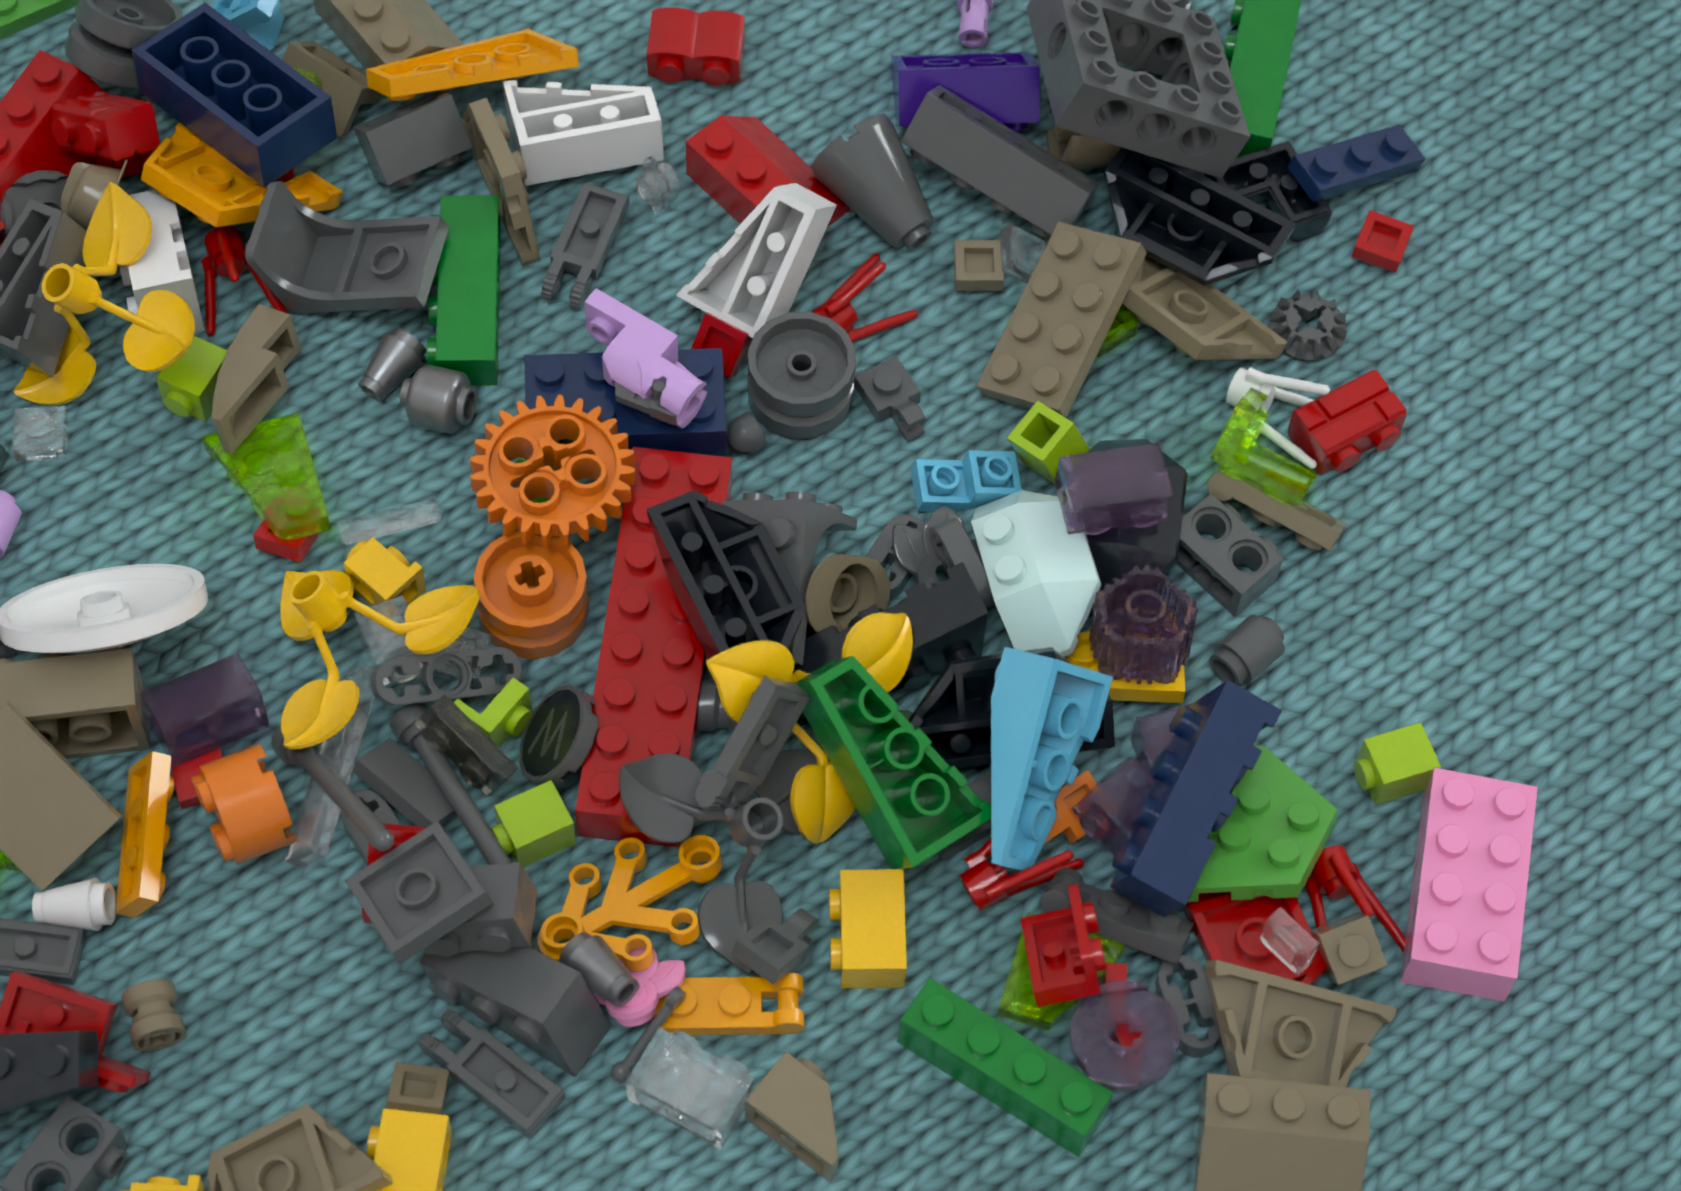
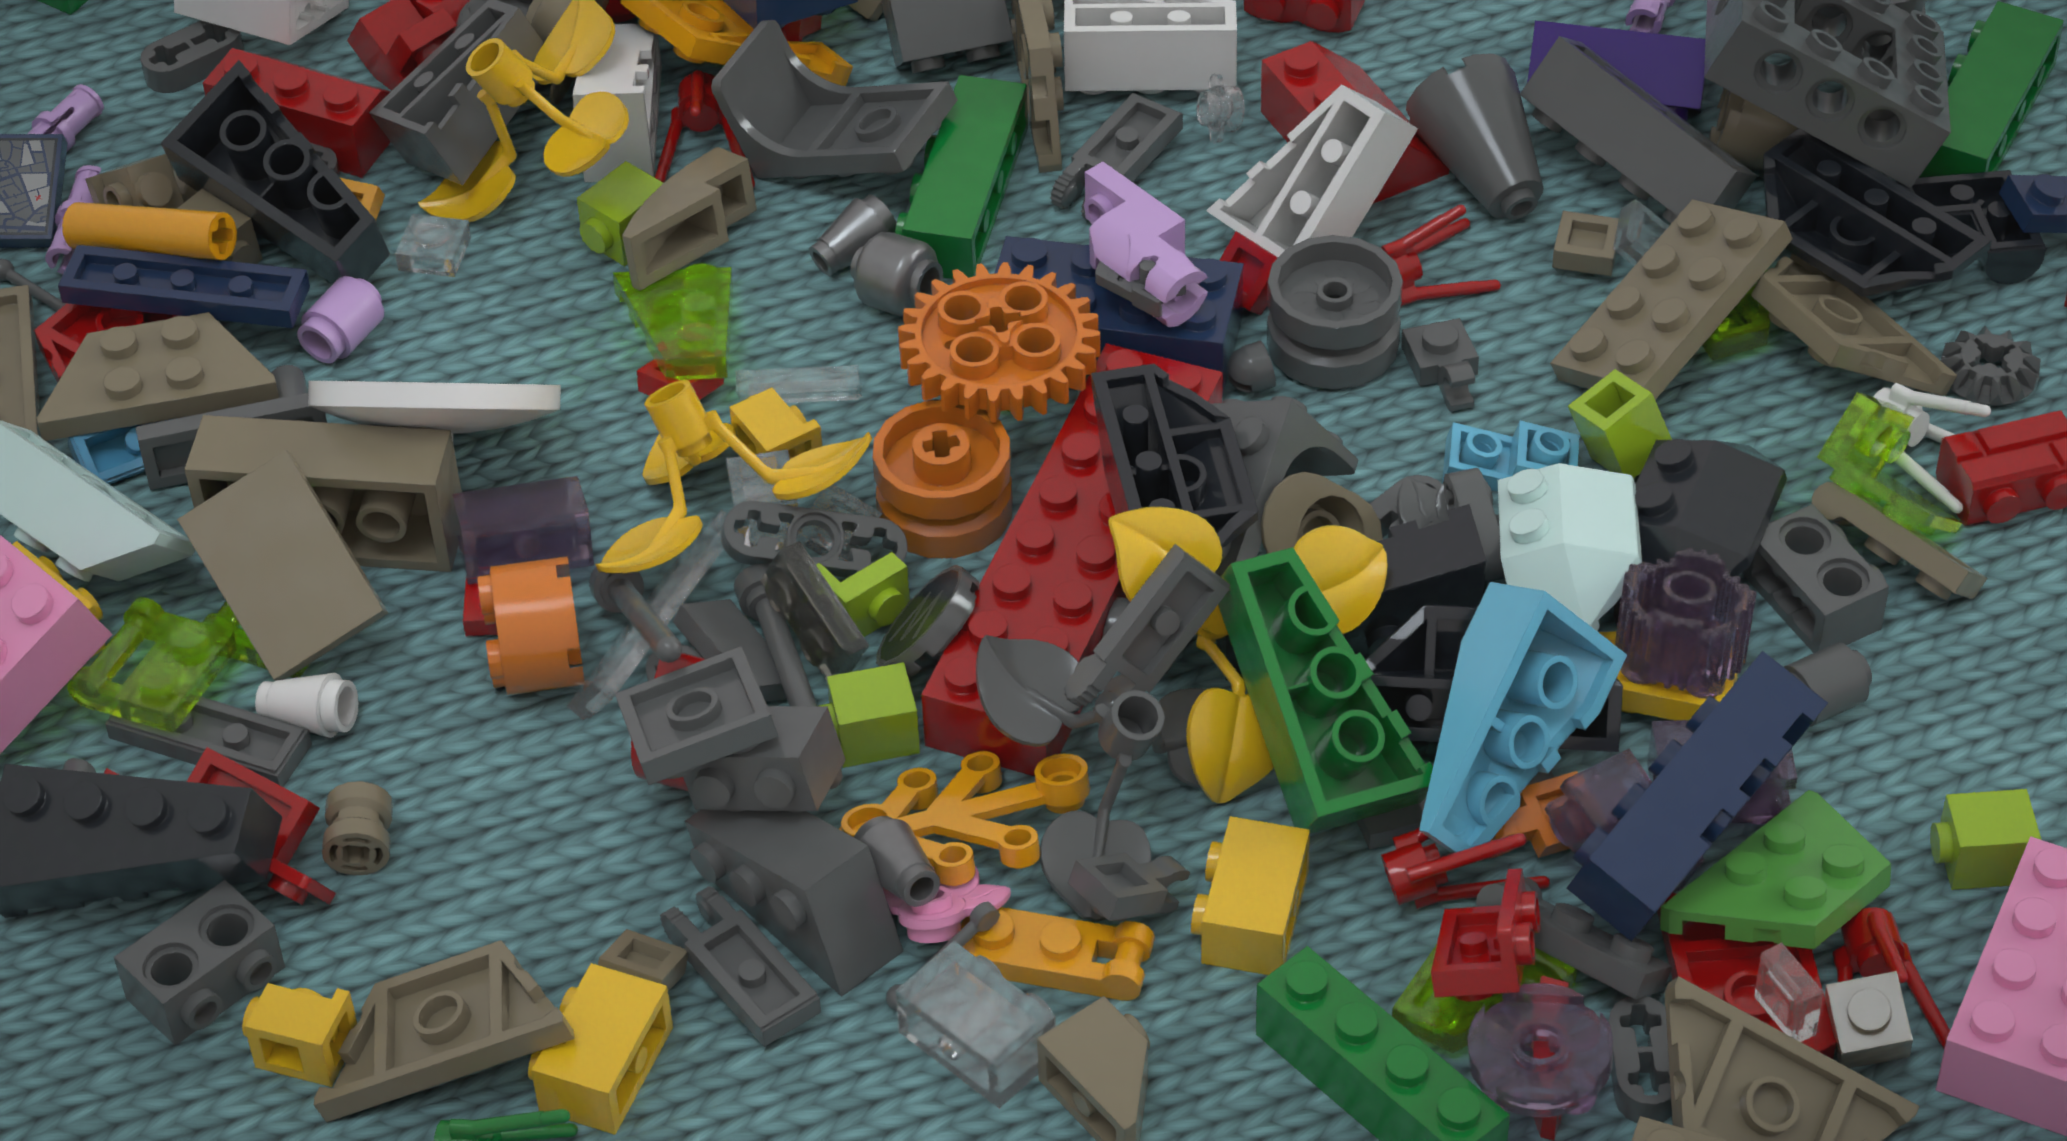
camera: 20 degrees right, 15 degrees down
(144, 835) = (412, 647): light orange plate -> none
(1113, 489) = (1680, 457): clear purple brick -> none

